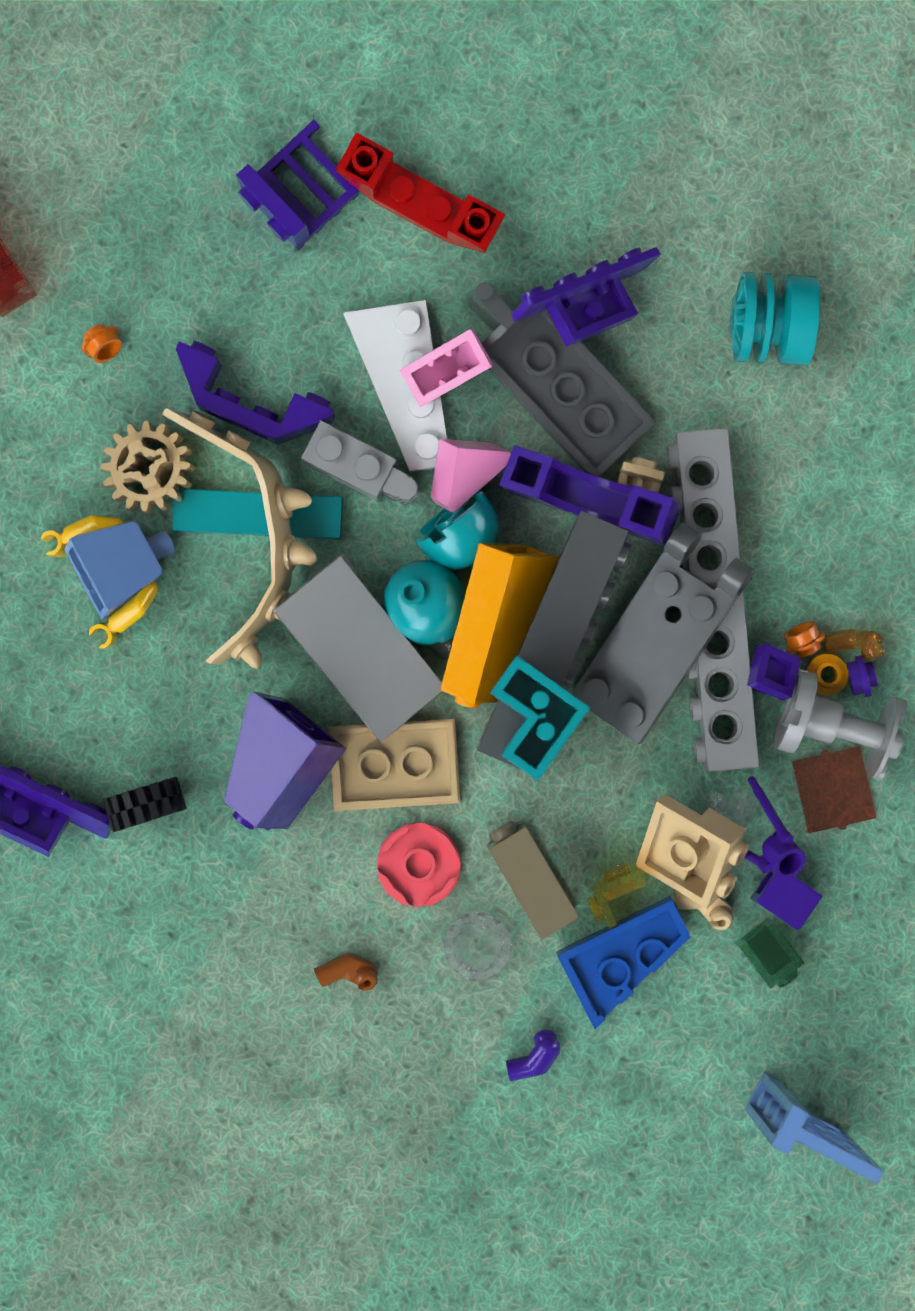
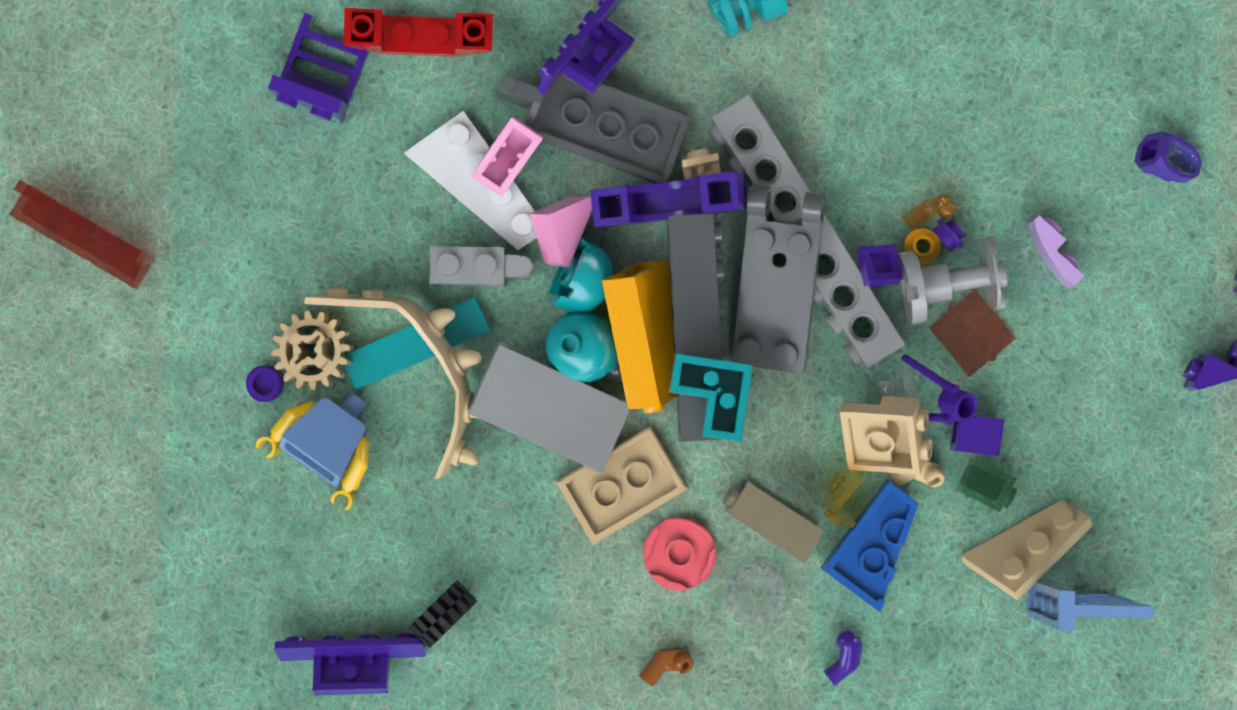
camera: 30 degrees left, 0 degrees up
(83, 478) = (265, 383): none -> dark purple tile
(101, 343) = (226, 271): orange plate -> none
(201, 373) = (412, 252): dark purple slope -> none
(277, 763) = (531, 529): slope -> none
(780, 1042) = (1028, 549): none -> tan wing
(804, 639) = (890, 228): orange plate -> none

